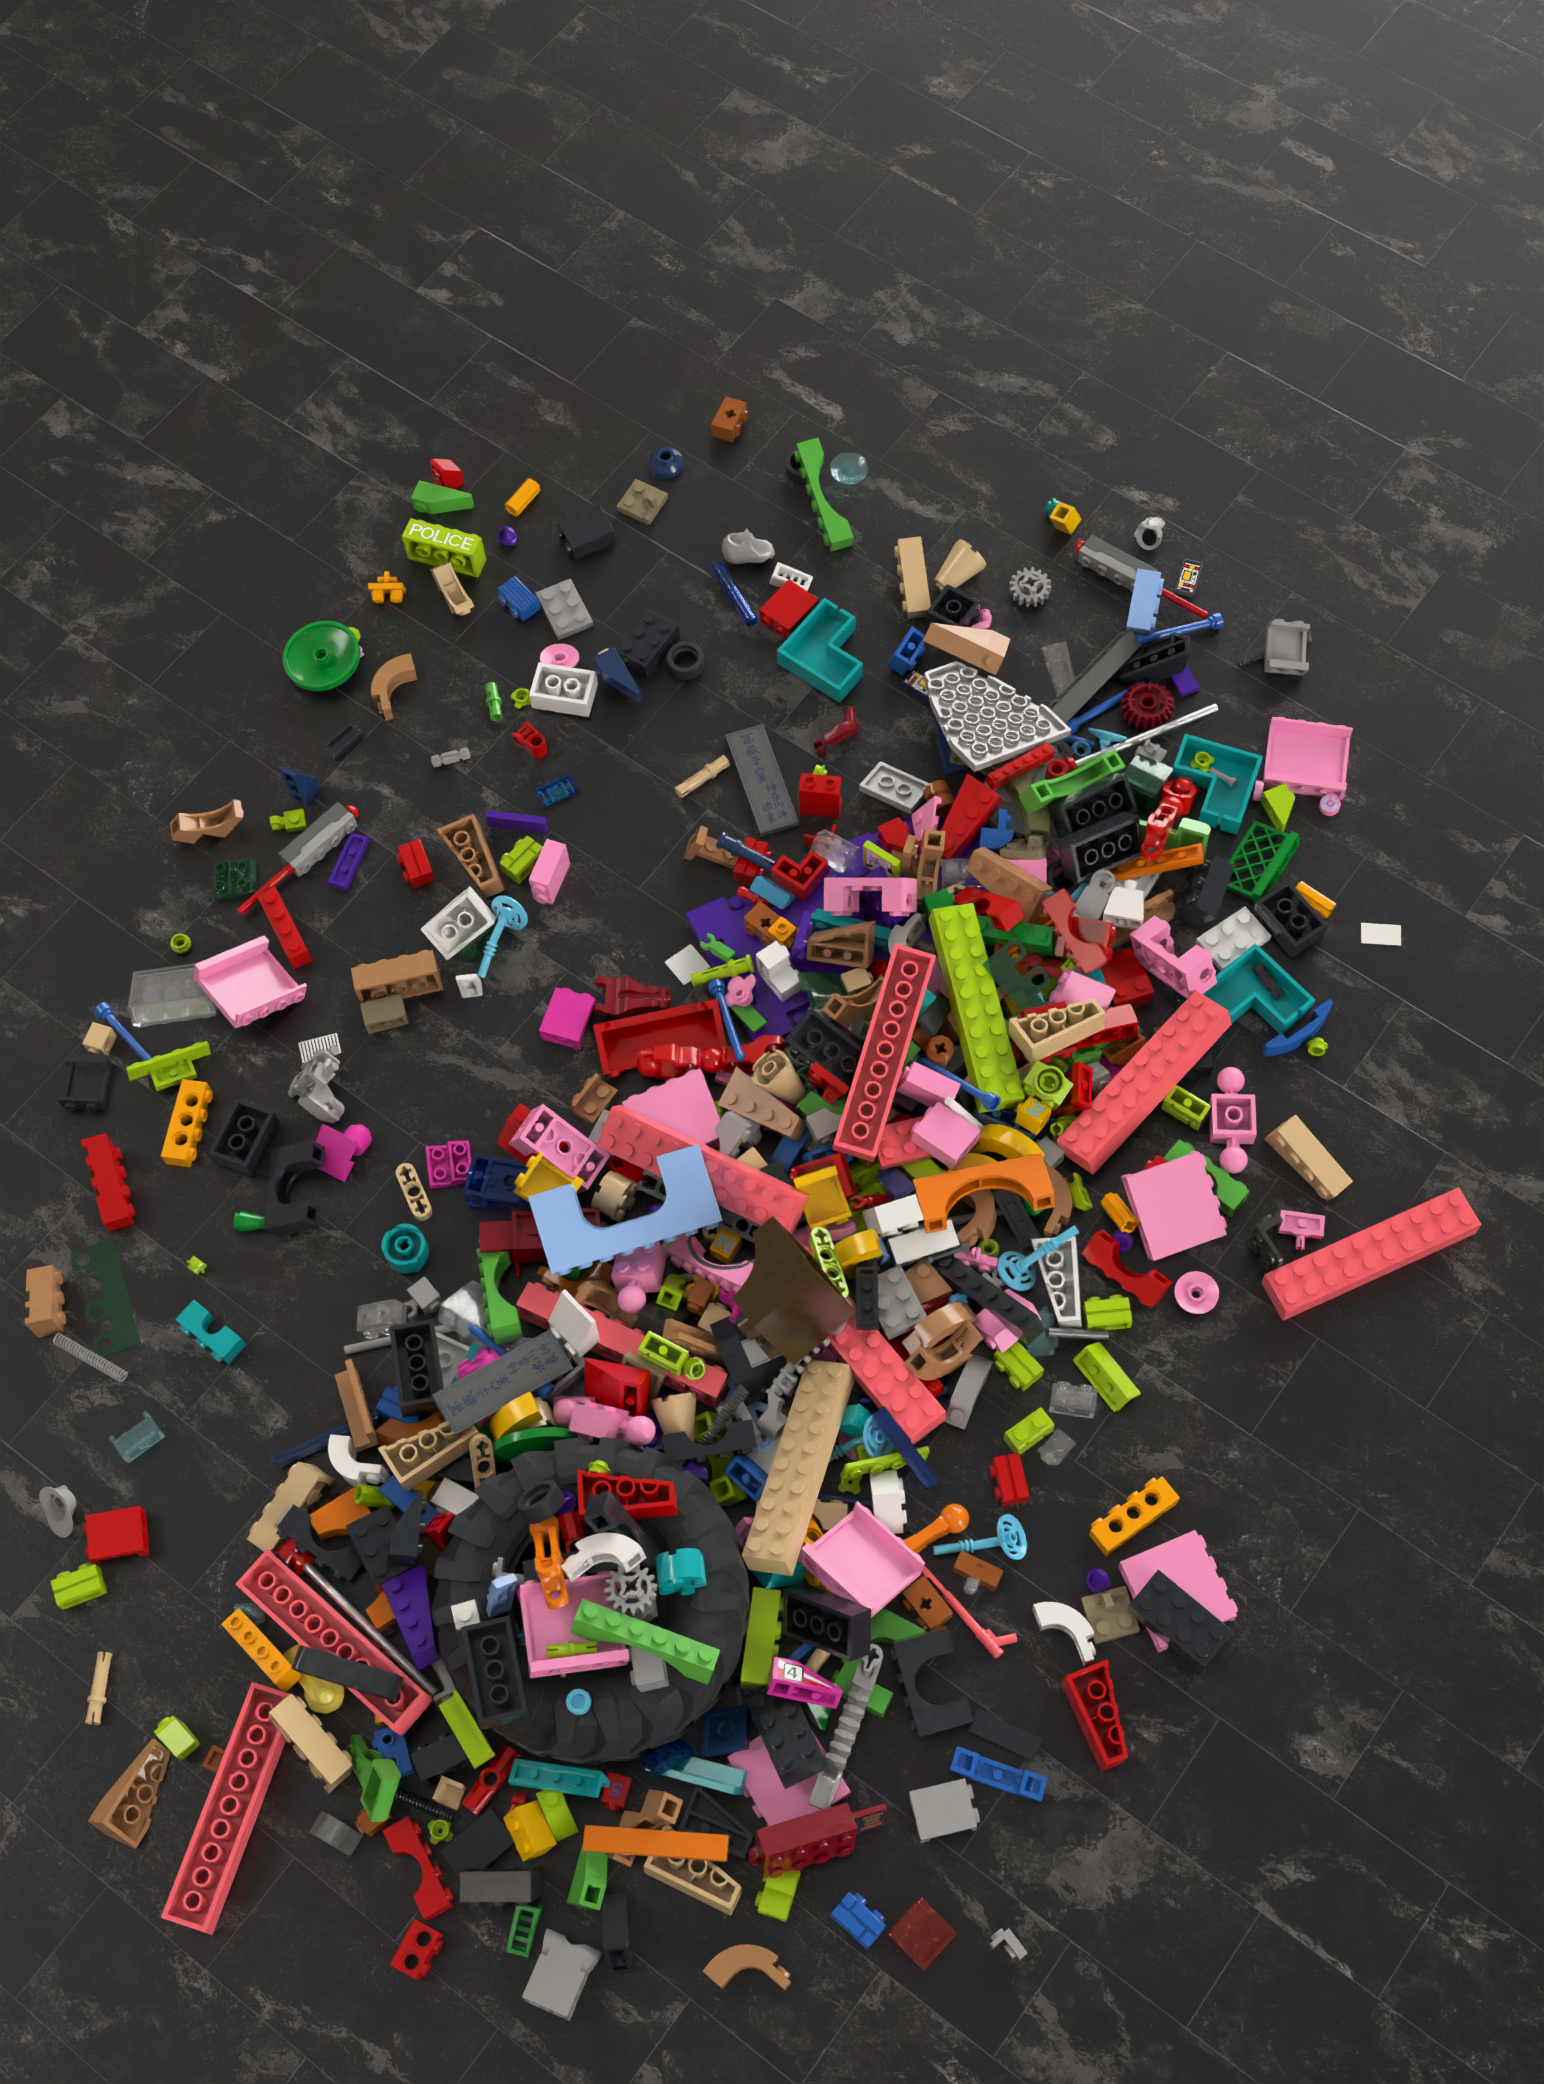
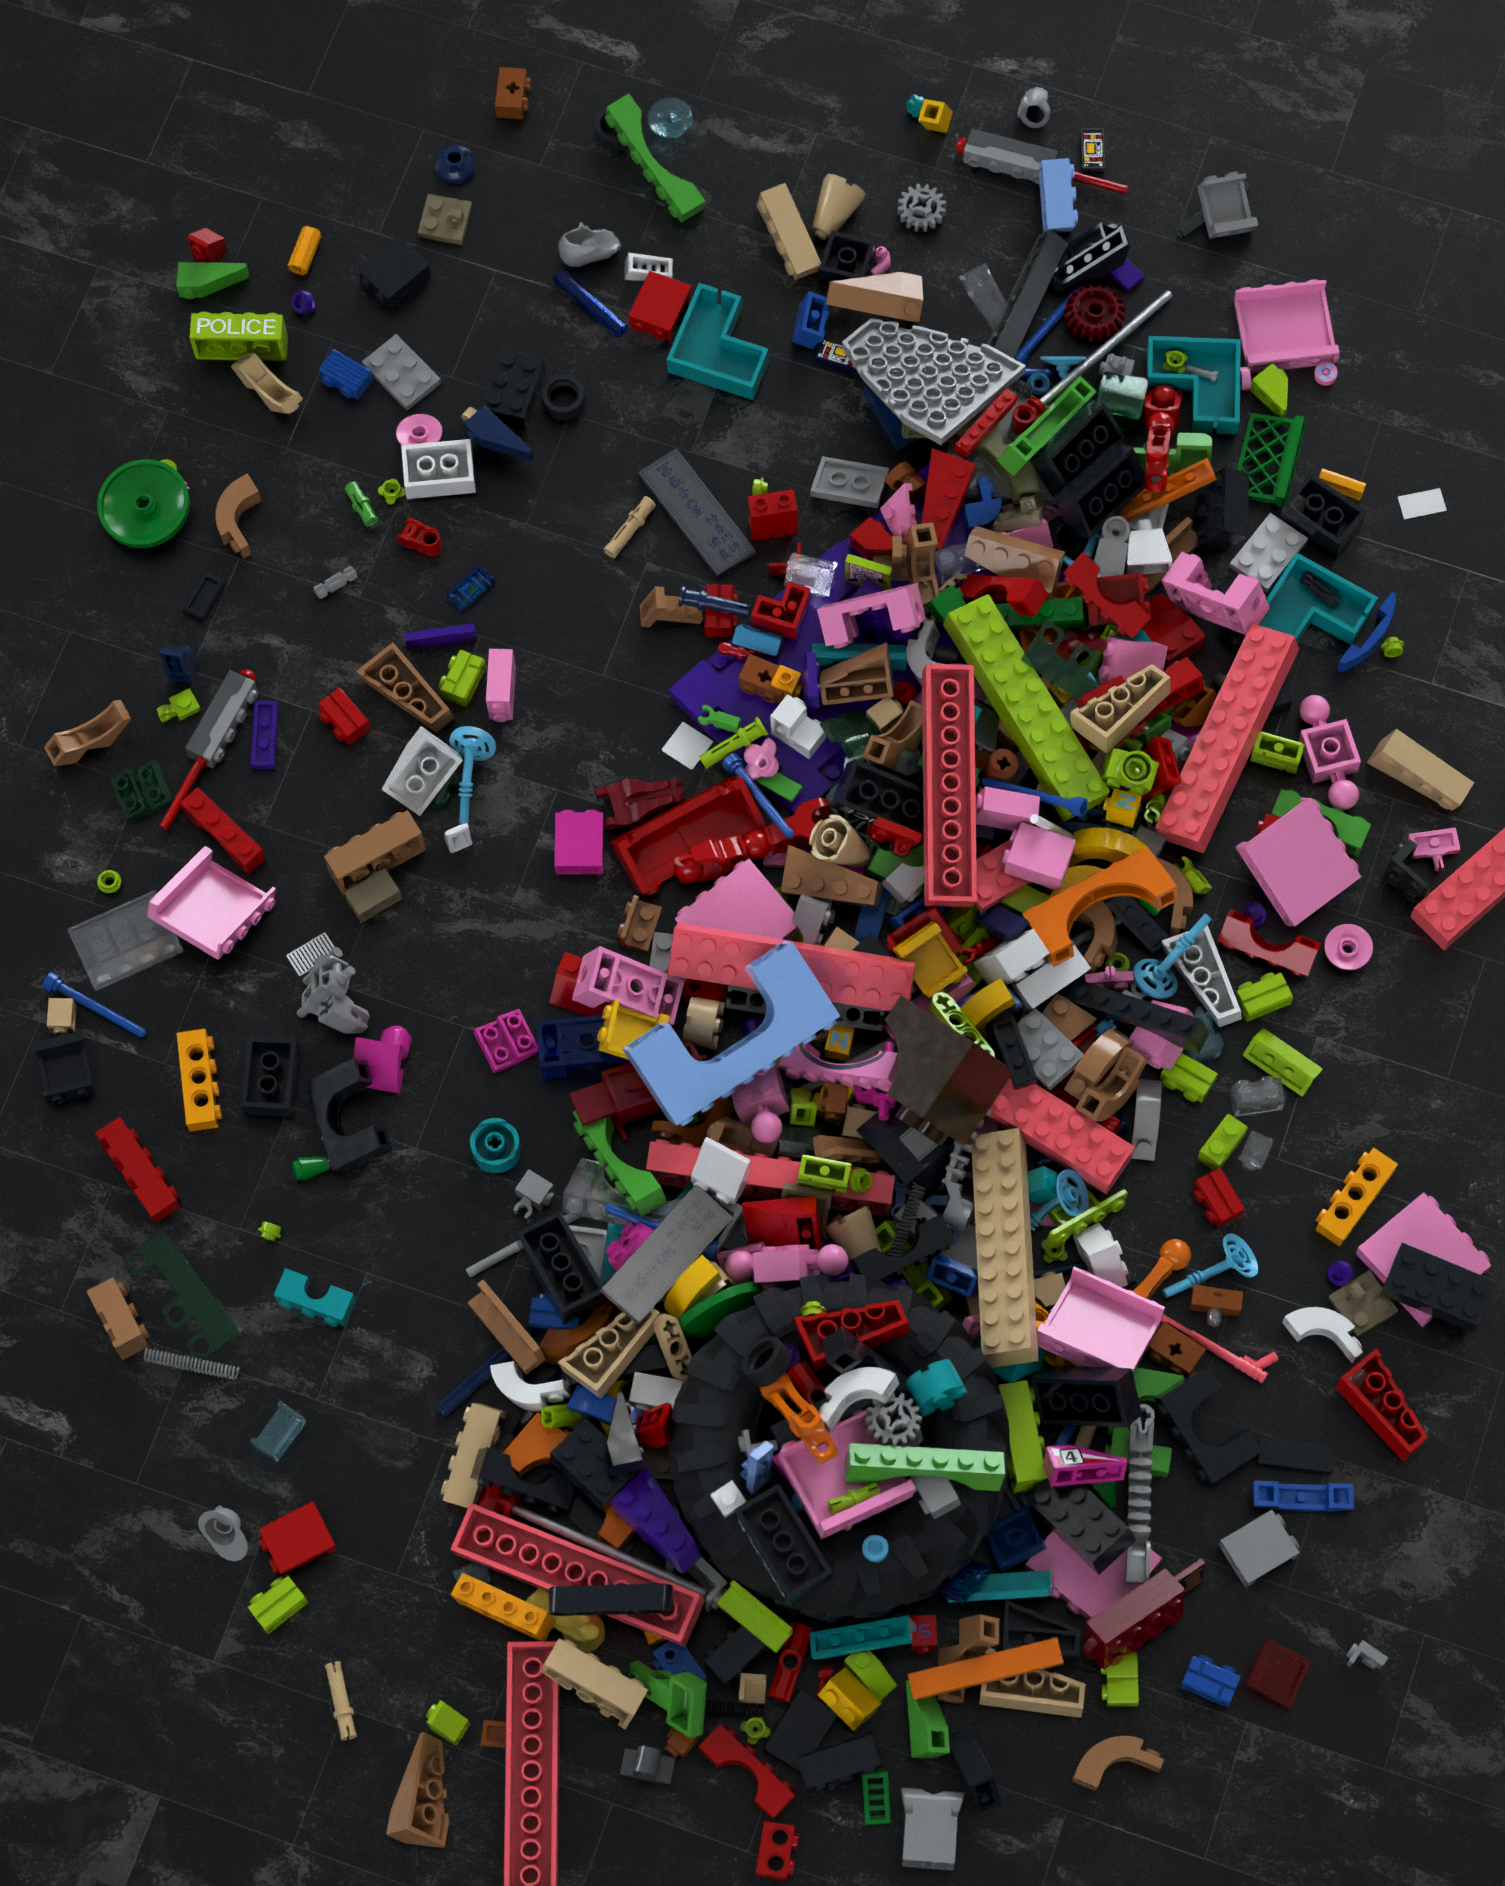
camera: 20 degrees left, 5 degrees up
(171, 1067) = (157, 1024): lime bracket -> none
(377, 1317) = (497, 1227): clear brick -> none
(387, 585) = (178, 406): light orange hips -> none
(408, 1185) = (495, 1089): tan beam -> none
(840, 732) = (768, 435): dark red arm -> none
(905, 1447) = (1104, 1196): clear blue piece -> none
(964, 1248) = (1096, 970): dark grey hinge -> none
(1076, 1333) = (1240, 1026): dark grey bar -> none
(1119, 1212) = (1243, 885): light orange axle -> none
(1214, 621) = (1136, 195): blue piece -> none

